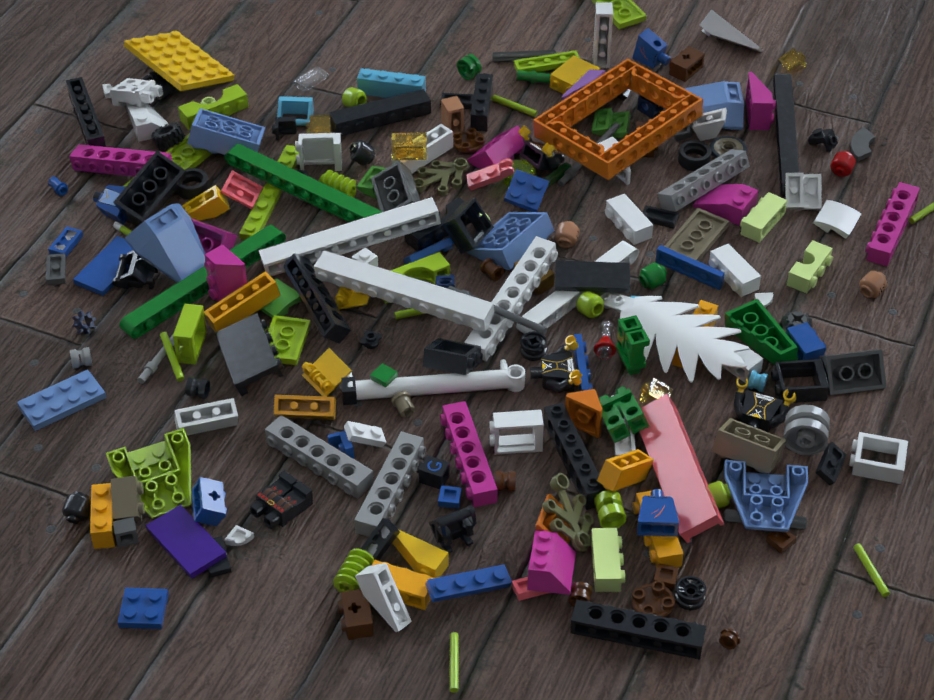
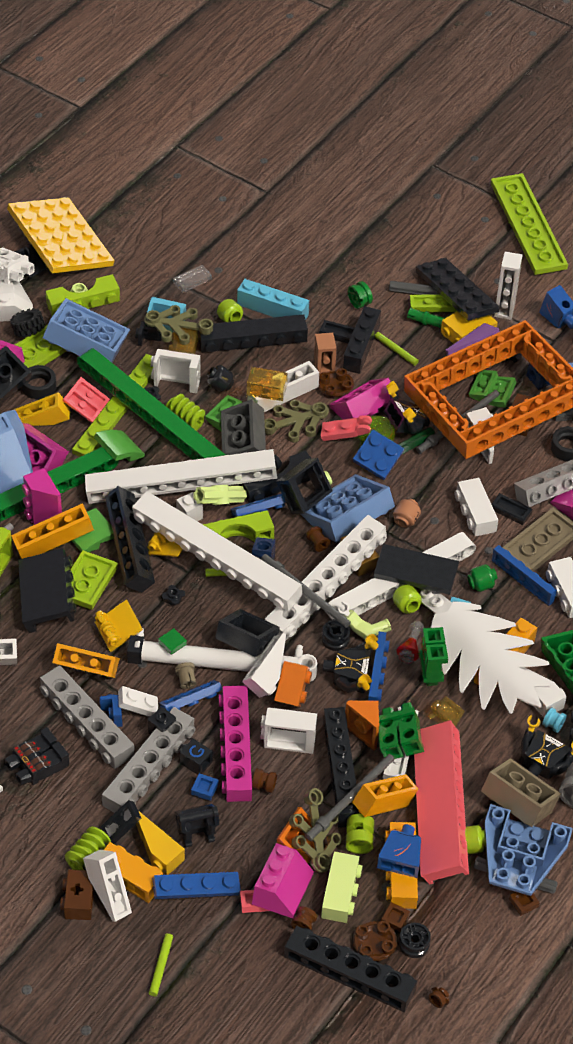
camera: 10 degrees right, 5 degrees up
(282, 222) = (118, 445): none -> bright green slope
(309, 112) = (157, 320): none -> olive plant
(391, 245) = (220, 494): none -> yellowish green piece
(391, 444) = (161, 720): none -> black bracket
(414, 421) = (192, 696): none -> blue plate
(481, 381) = (267, 669): none -> white slope
(507, 391) = (293, 683): none -> orange brick
(554, 334) = (361, 627): none -> yellowish green arm
(555, 48) = (457, 289): none -> black plate
(576, 502) = (324, 822): none -> dark grey bar

